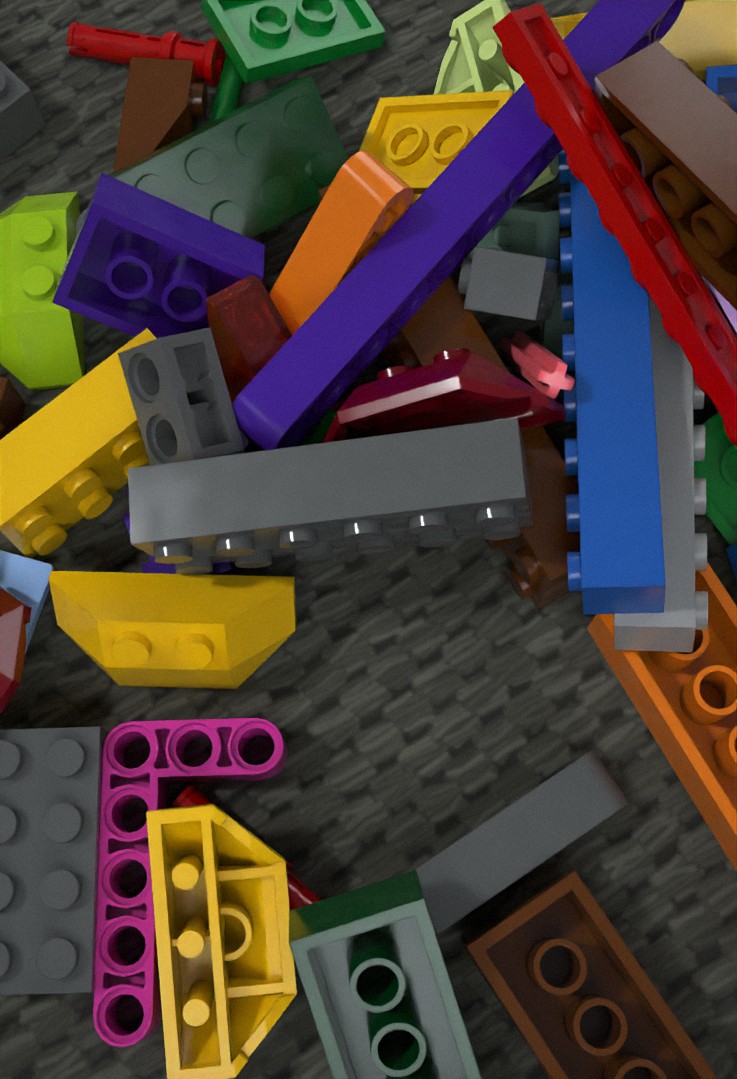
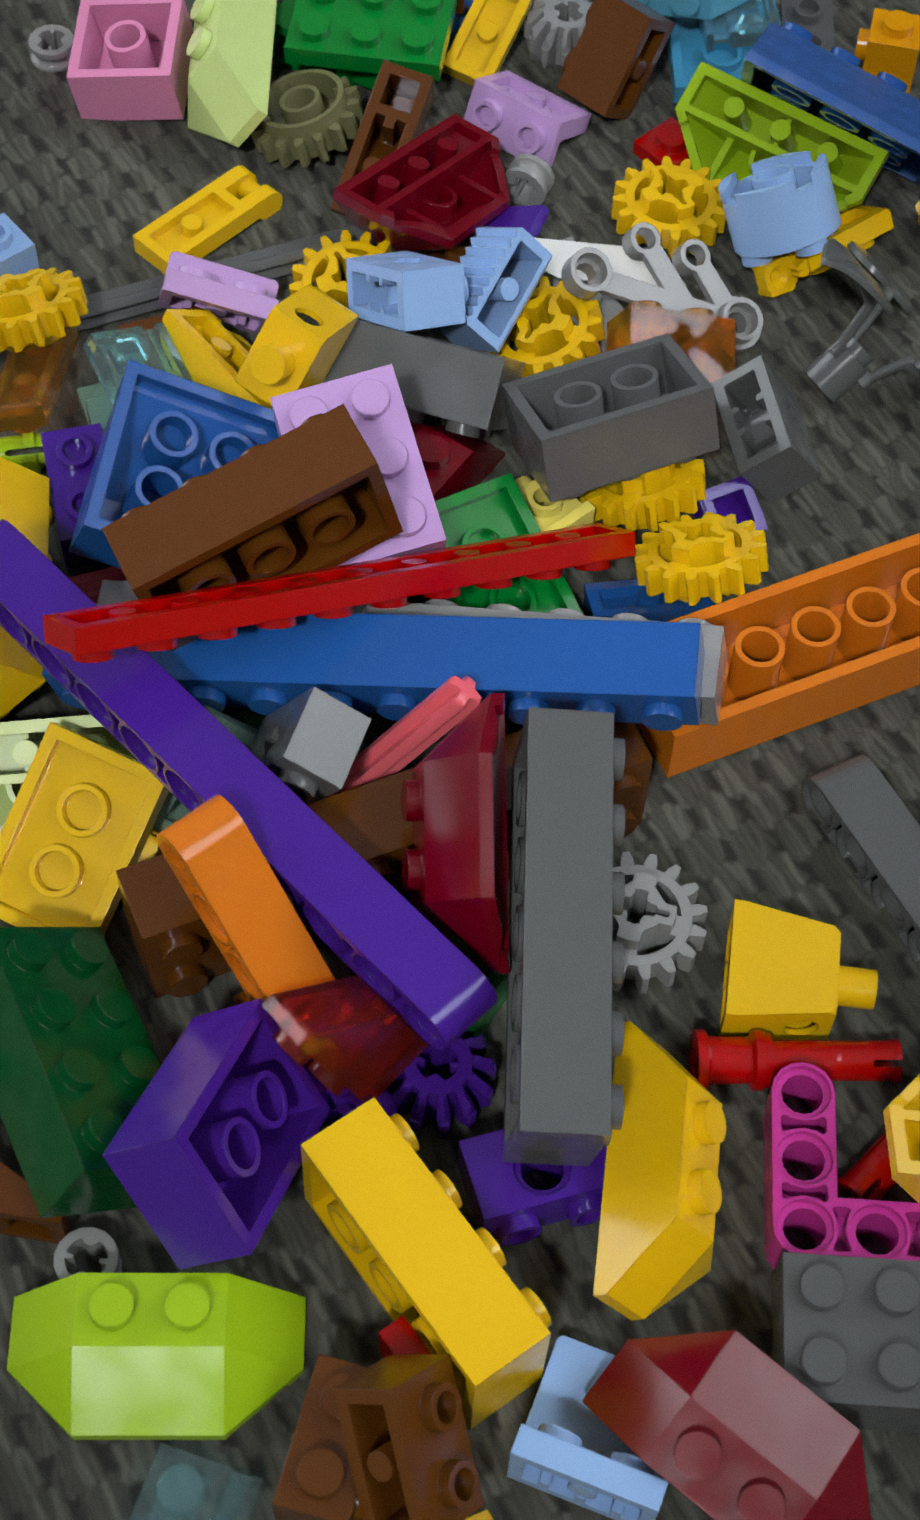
camera: 90 degrees left, 15 degrees down
(181, 398) = (428, 1073): dark grey brick -> none
(301, 719) = (758, 1058): none -> red pin
(381, 736) = (787, 975): none -> yellow torso
(446, 603) = (667, 925): none -> light grey gear

